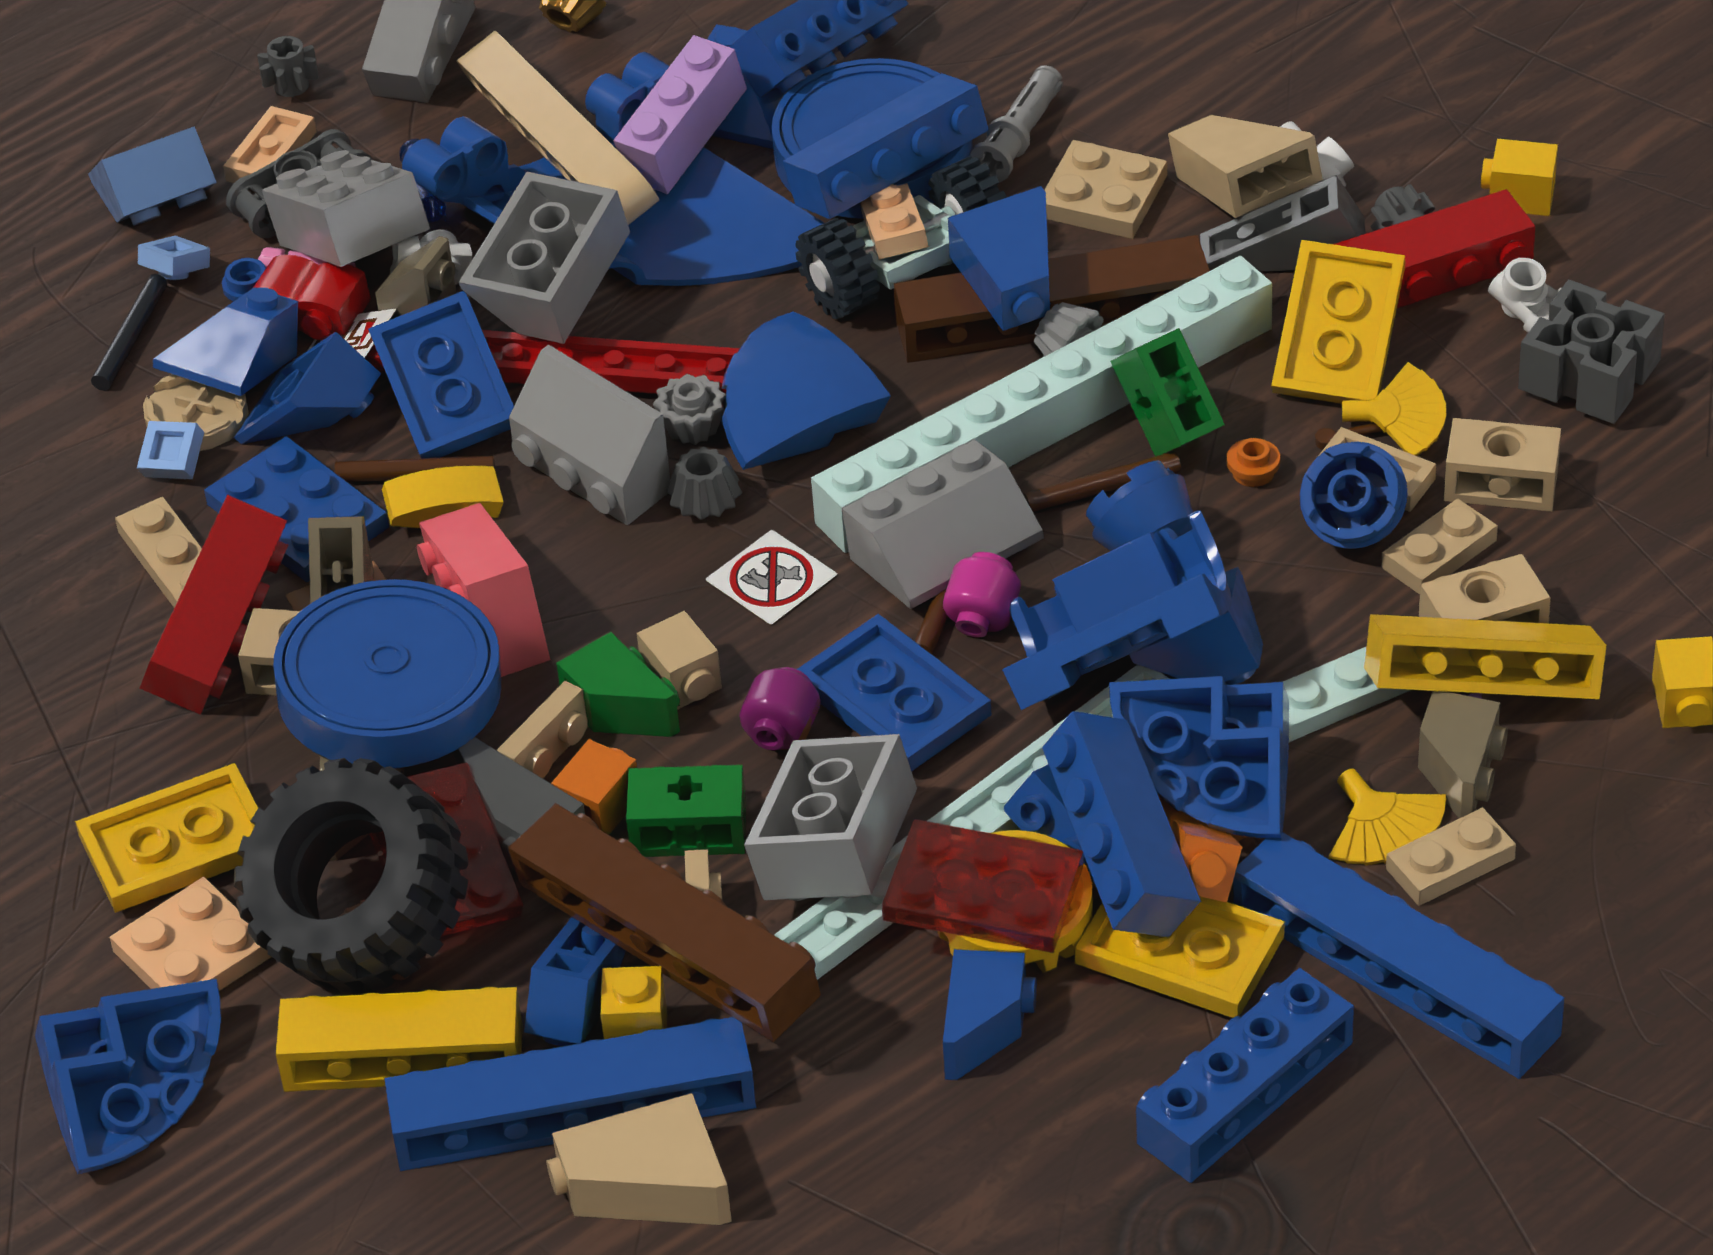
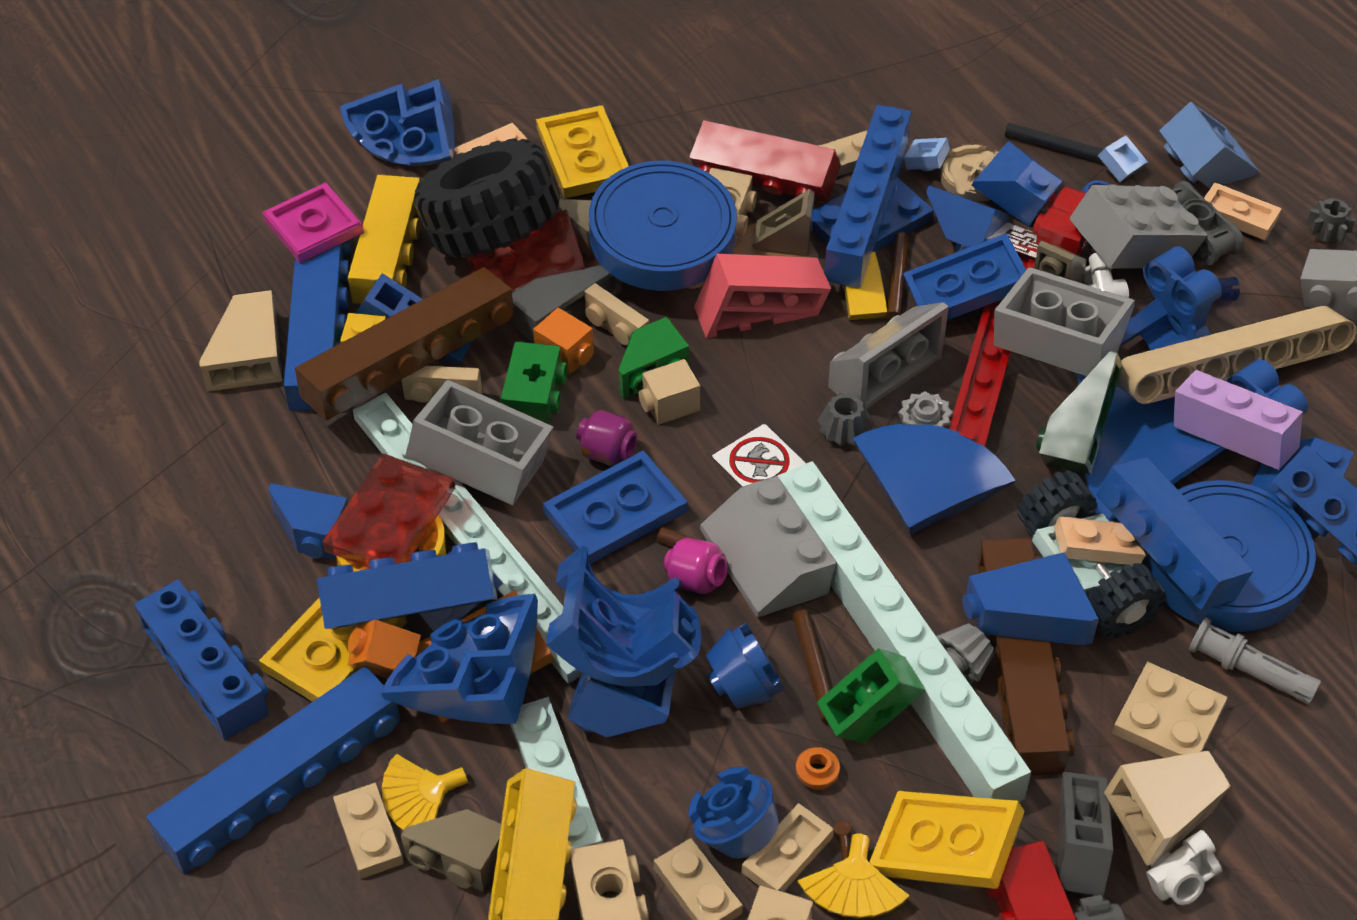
camera: 95 degrees right, 5 degrees up
(296, 471) = (867, 196): none -> blue brick
(403, 1104) = (312, 222): none -> dark pink tile
(694, 247) = (1079, 422): none -> slope

